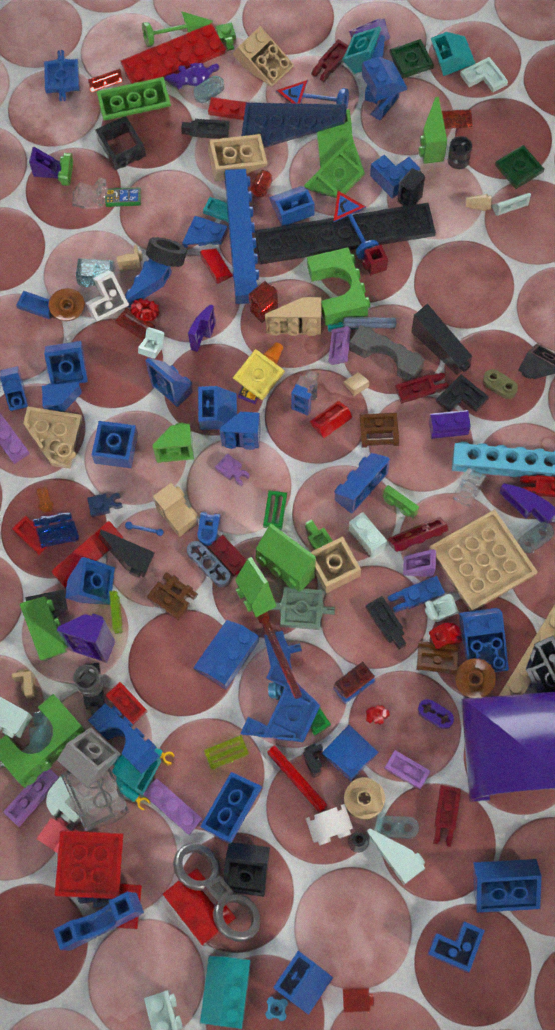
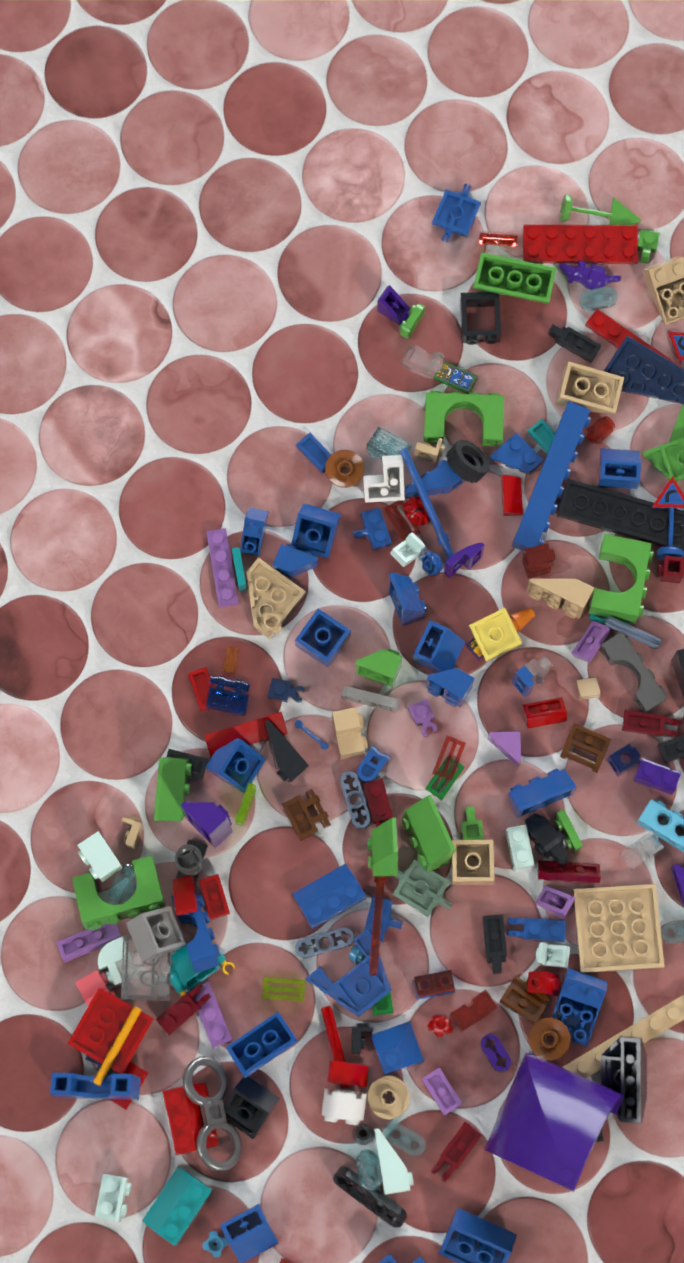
camera: 25 degrees right, 5 degrees up
(16, 424) = (239, 569): none -> teal tile
(99, 712) = (184, 895): none -> red slope
(101, 873) = (117, 1045): none -> light orange bar
(115, 341) = (374, 529): none -> blue plate
(144, 815) = (181, 1010): none -> dark red hinge
(160, 206) = (488, 407): none -> bright green arch
(176, 322) = (443, 539): none -> blue bar
(176, 345) = (431, 563): none -> blue plate
(180, 475) = (370, 699): none -> light grey beam
(227, 700) = (311, 953): none -> sand blue beam
(272, 506) = (443, 774): none -> clear red tile
(314, 457) = (508, 744): none -> medium lavender slope
(319, 795) = (348, 1073): none -> red slope
(380, 869) = (369, 1170): none -> clear light blue plate
(386, 516) = (546, 839): none -> black hinge
(392, 896) = (368, 1199): none -> black beam
(395, 695) = (481, 1007): none -> clear red brick
(415, 431) = (620, 767): none -> clear blue brick

